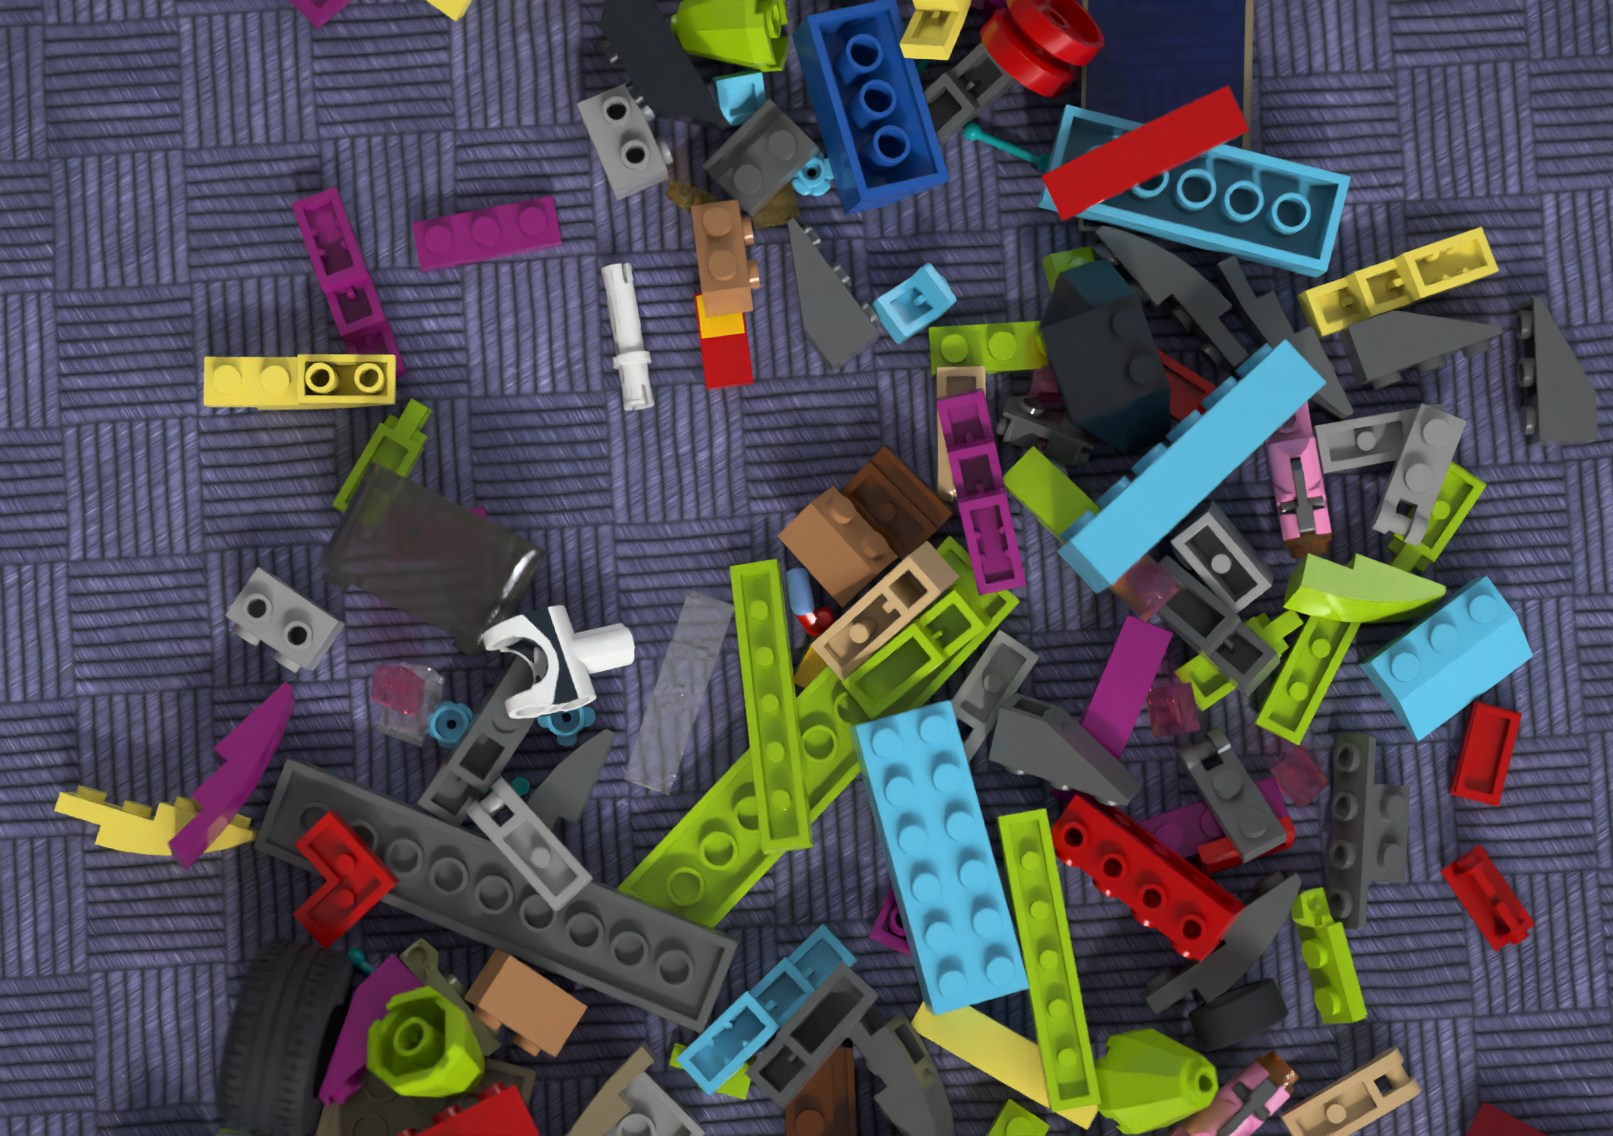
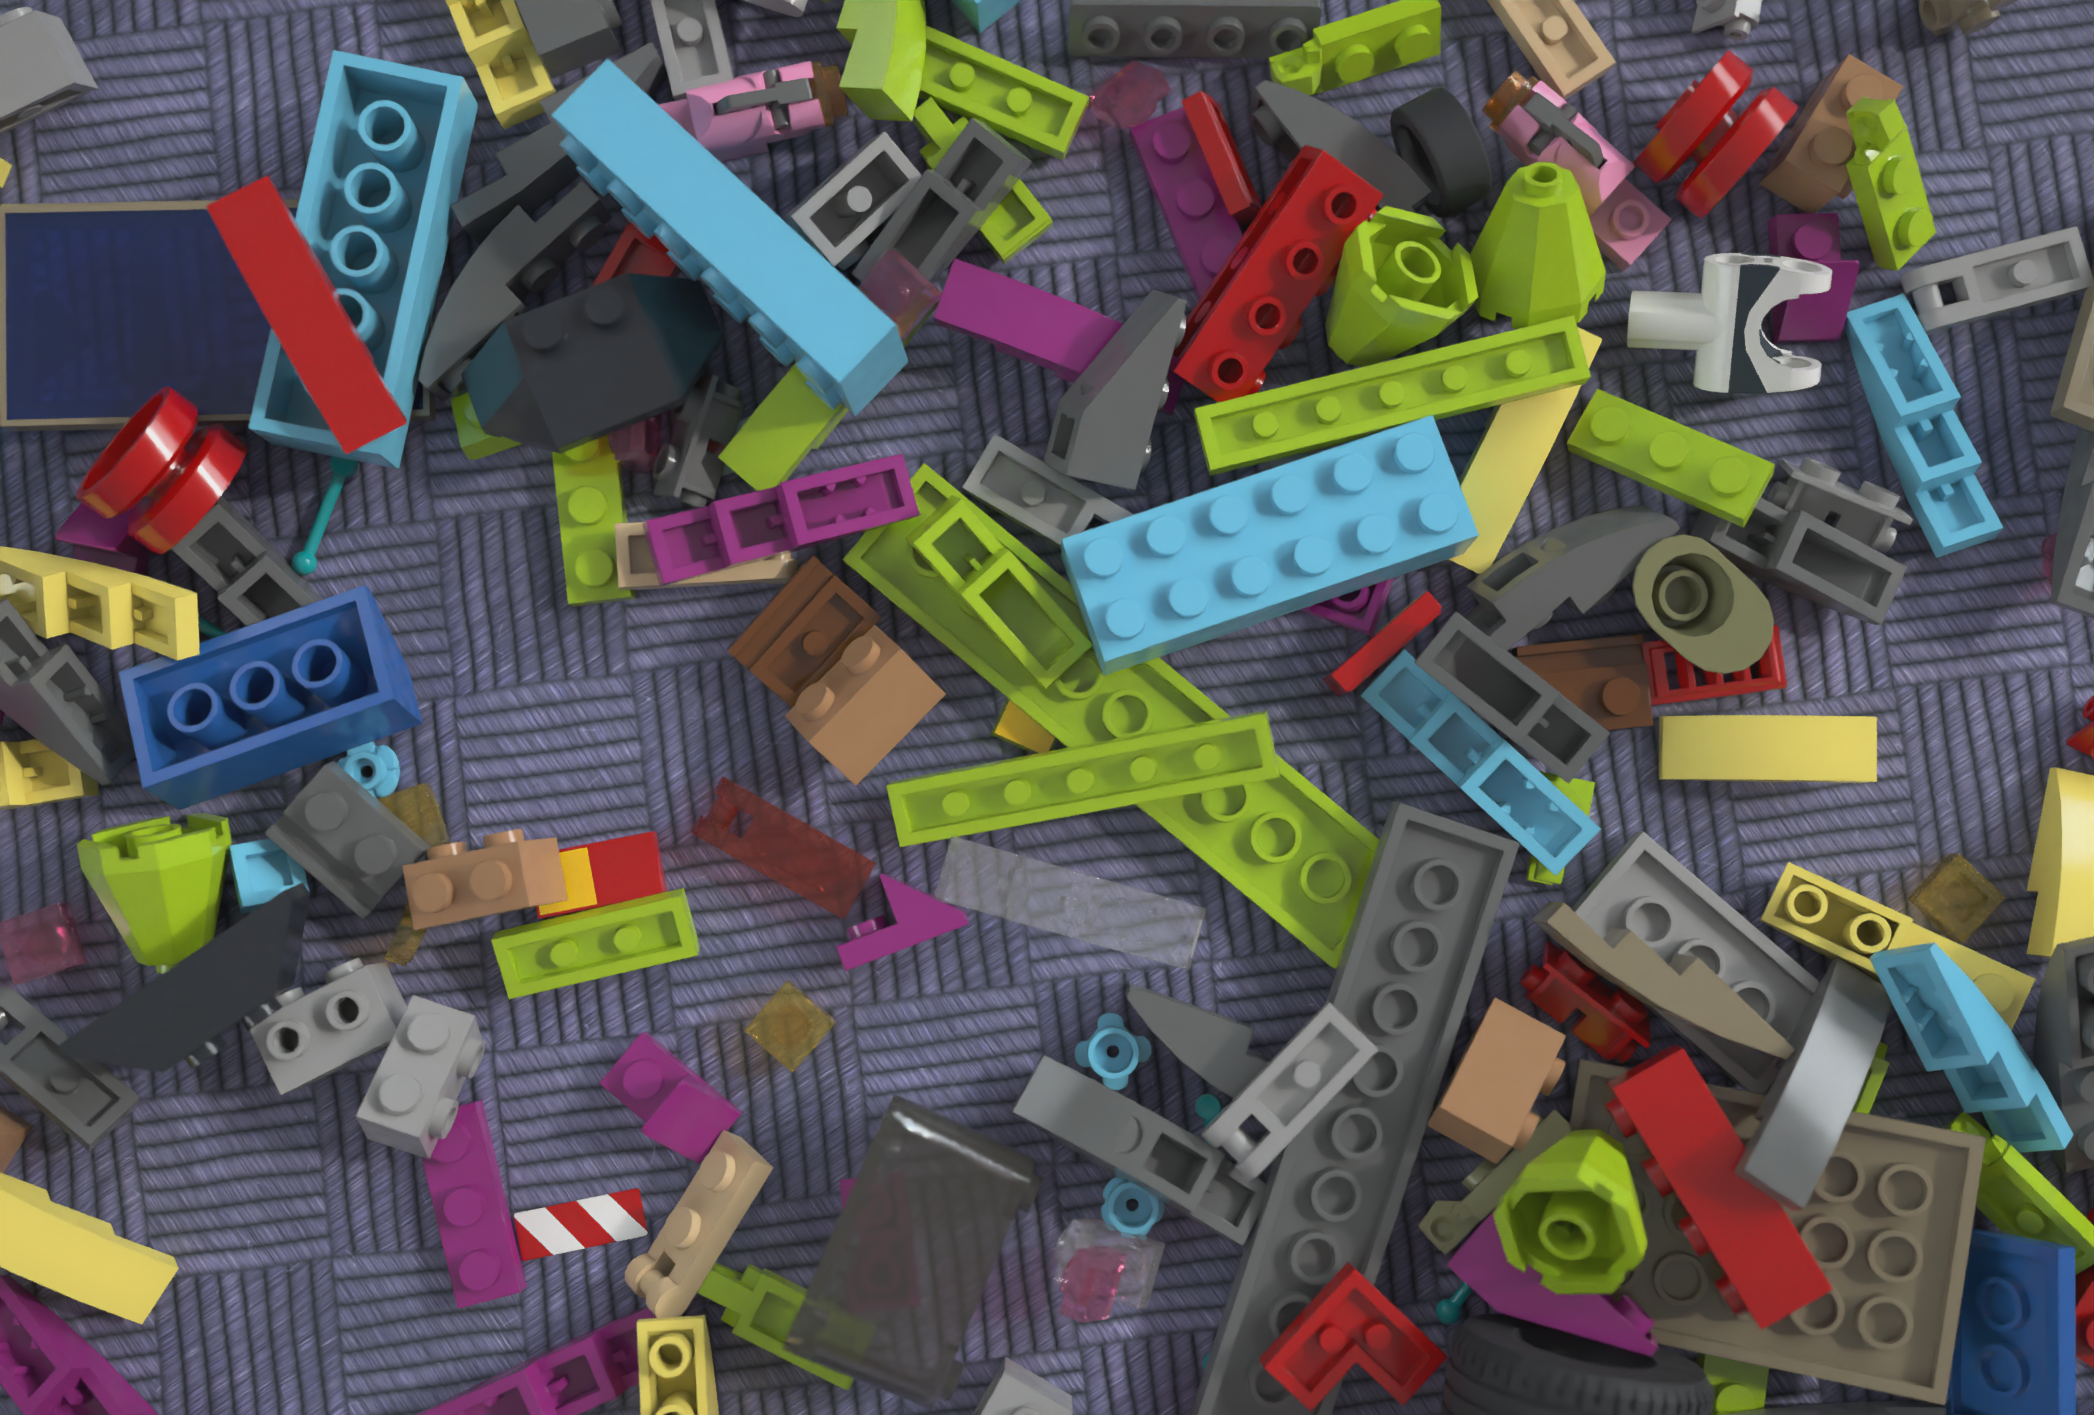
camera: 95 degrees left, 0 degrees up
(459, 402) = (698, 1227): none -> tan plate
(465, 314) = (580, 1224): none -> sticker
(553, 385) = (670, 1098): none -> magenta slope
(558, 658) = (1037, 1068): white connector -> none
(565, 1098) = (1608, 1017): none -> red hinge
(583, 206) = (421, 1077): none -> light grey brick
(601, 477) = (790, 1026): none -> clear yellow plate
(626, 328) = (613, 1000): white pin -> none
(672, 336) = (596, 943): none -> lime plate
(673, 576) = (917, 918): none -> magenta slope
(733, 481) = (786, 849): none -> clear red plate
(802, 603) = (945, 746): medium blue arm -> none
(829, 313) = (555, 735): dark grey slope -> none
(860, 943) = (1383, 644): none -> red tile
(885, 610) = (947, 635): tan slope -> none
(914, 303) = (536, 623): medium azure bracket -> none
(1132, 970) = (1396, 287): none -> lime cone
(1172, 710) = (1054, 258): clear pink plate -> none
(1231, 796) = (1160, 176): dark grey plate -> none

